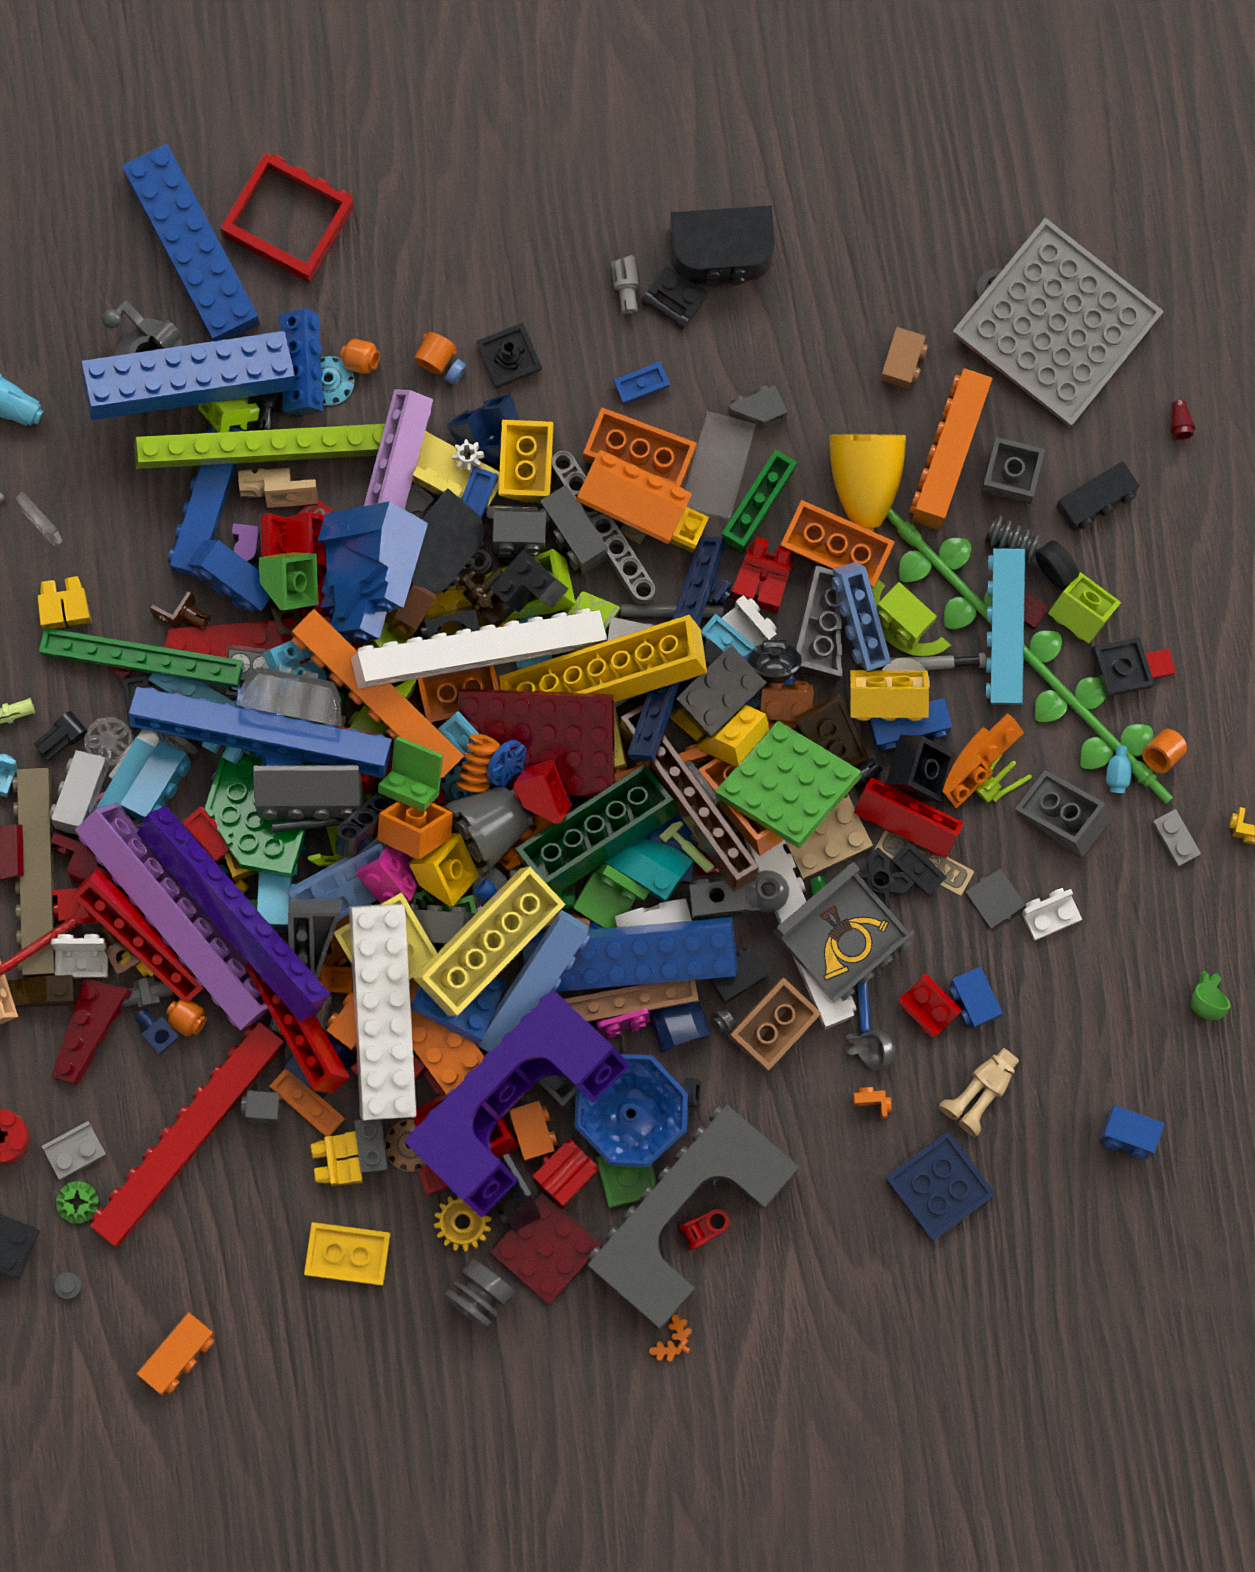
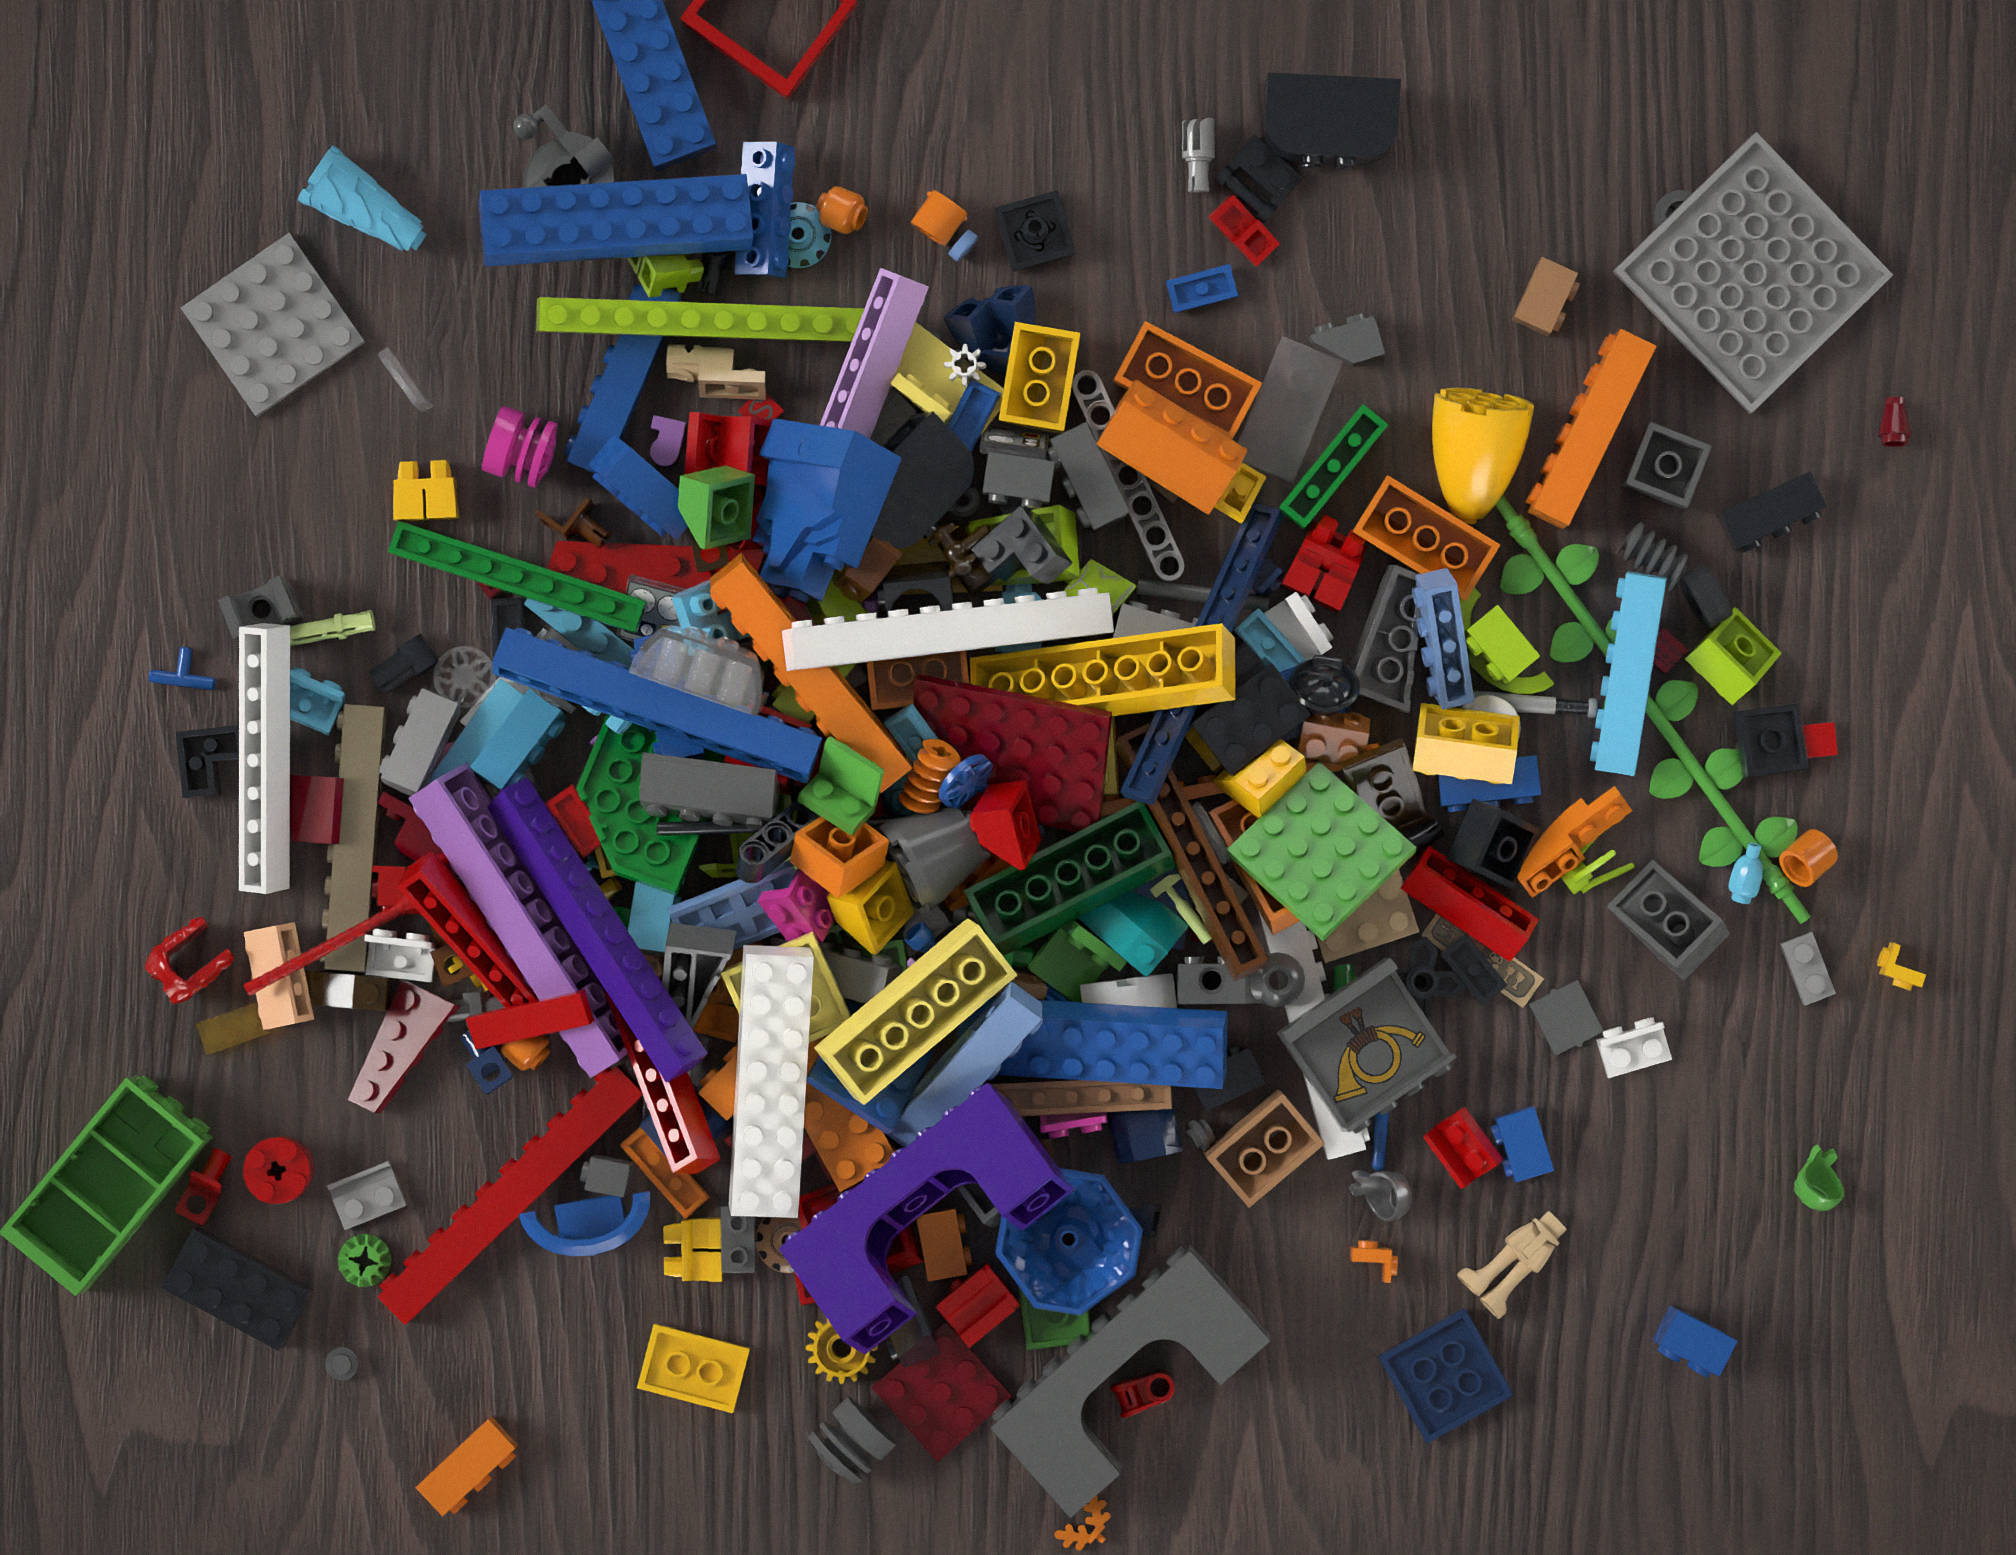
camera: 15 degrees right, 10 degrees up
(133, 559) = (520, 447): none -> dark pink wheel
(188, 990) = (530, 1019): none -> red tile
(252, 1146) = (589, 1224): none -> blue piece
(667, 337) = (1243, 230): none -> red slope

